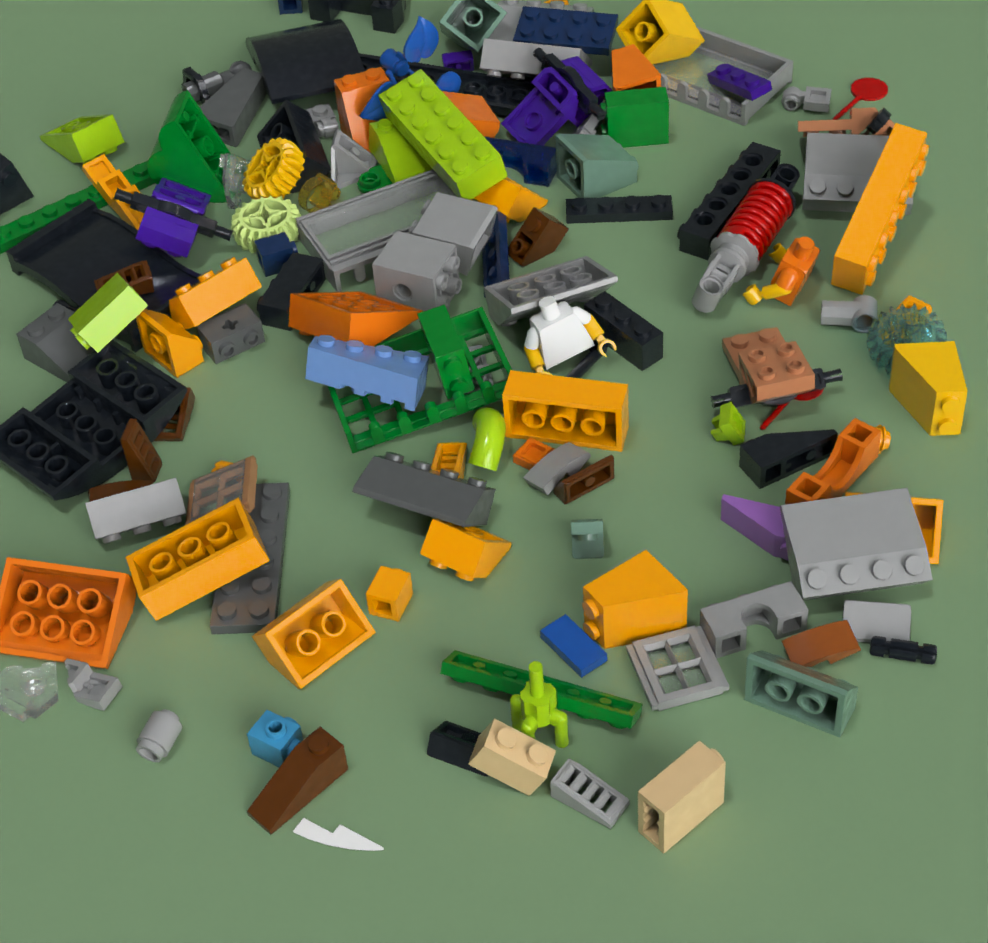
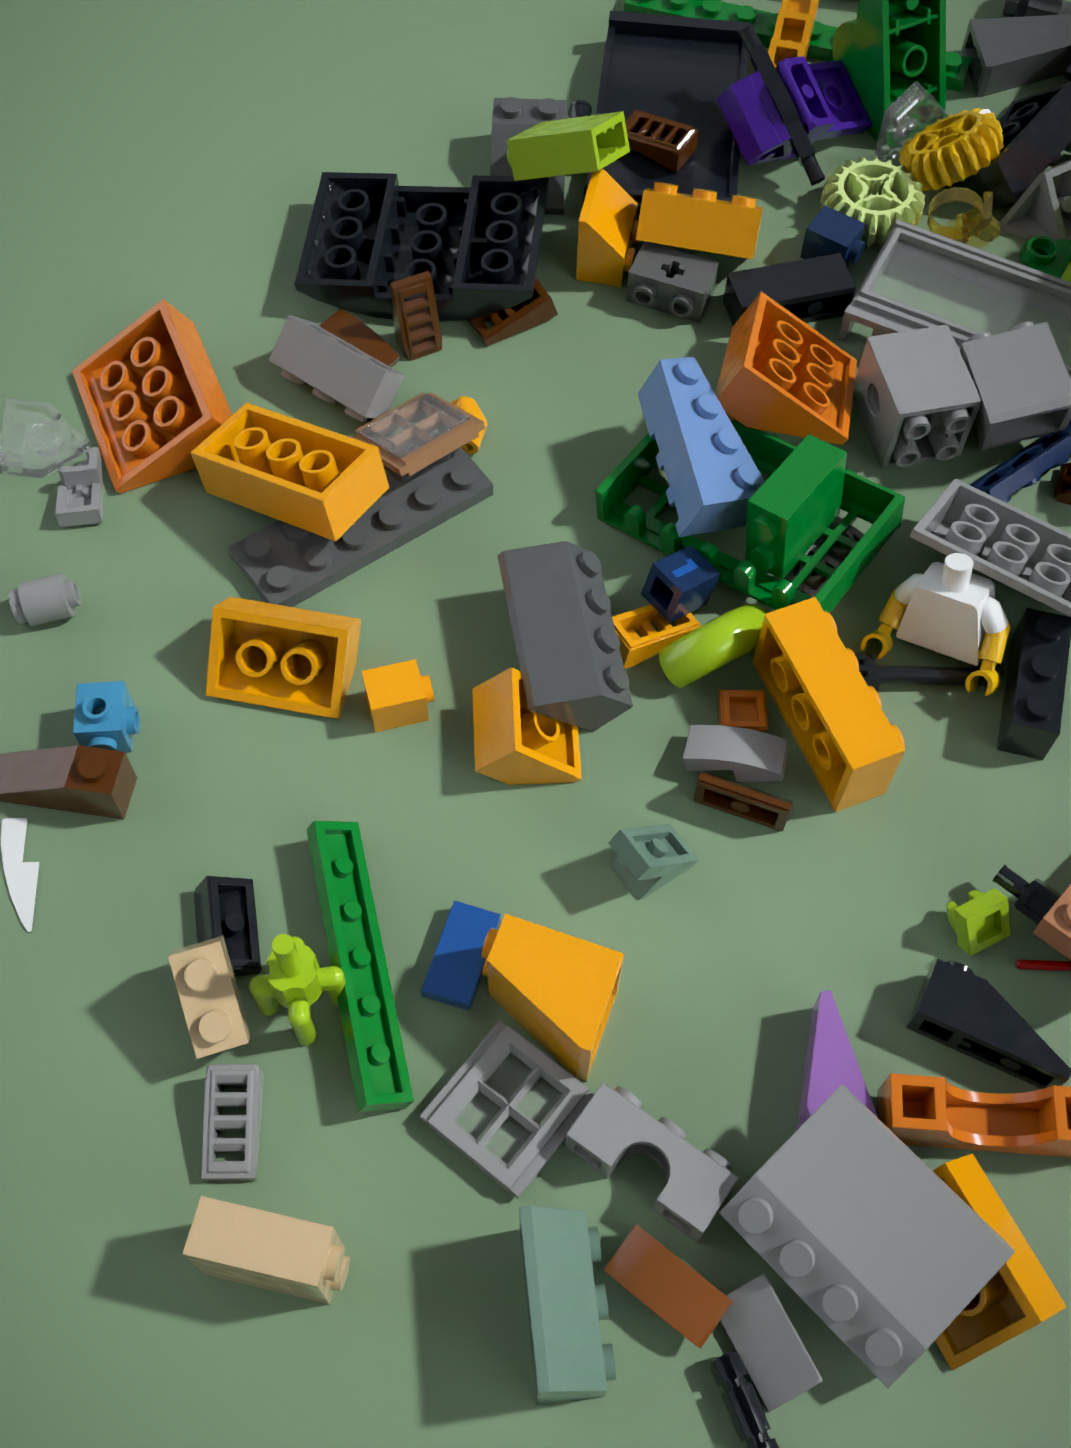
camera: 50 degrees right, 15 degrees up
(438, 431) = (680, 583): none -> dark blue brick

